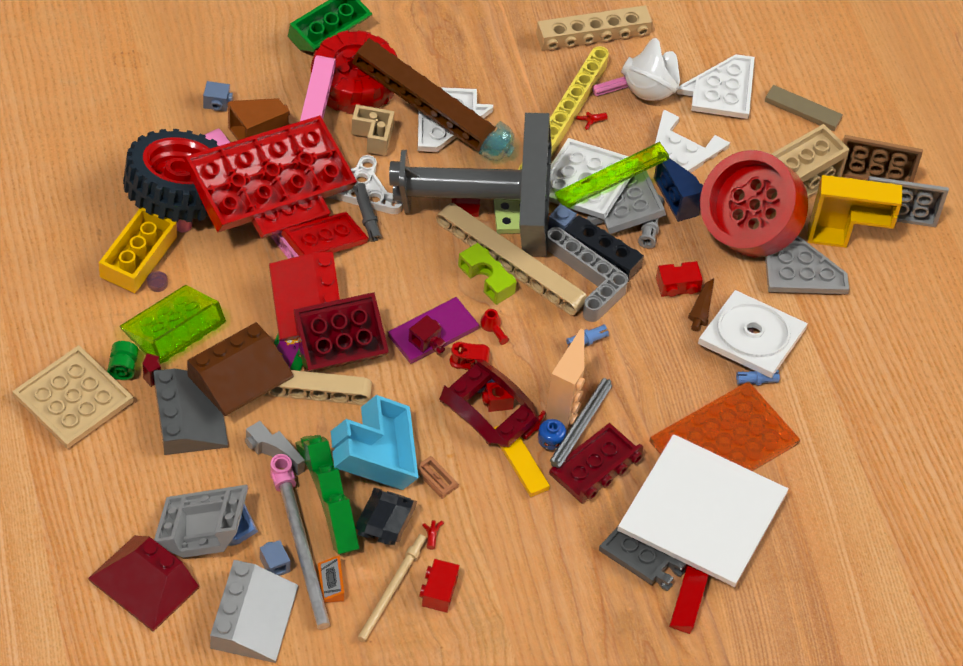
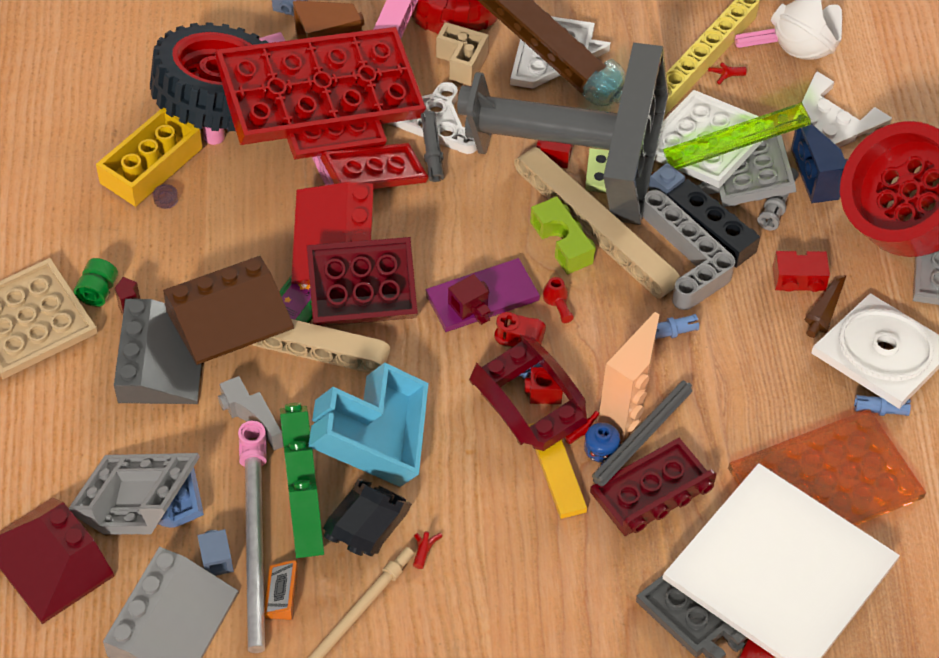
camera: 15 degrees right, 0 degrees up
(174, 322) = (170, 247): clear neon green slope -> none
(440, 585) = (417, 618): red brick -> none
(441, 489) = (455, 493): nougat tile -> none
(723, 88) = (893, 55): white wing -> none

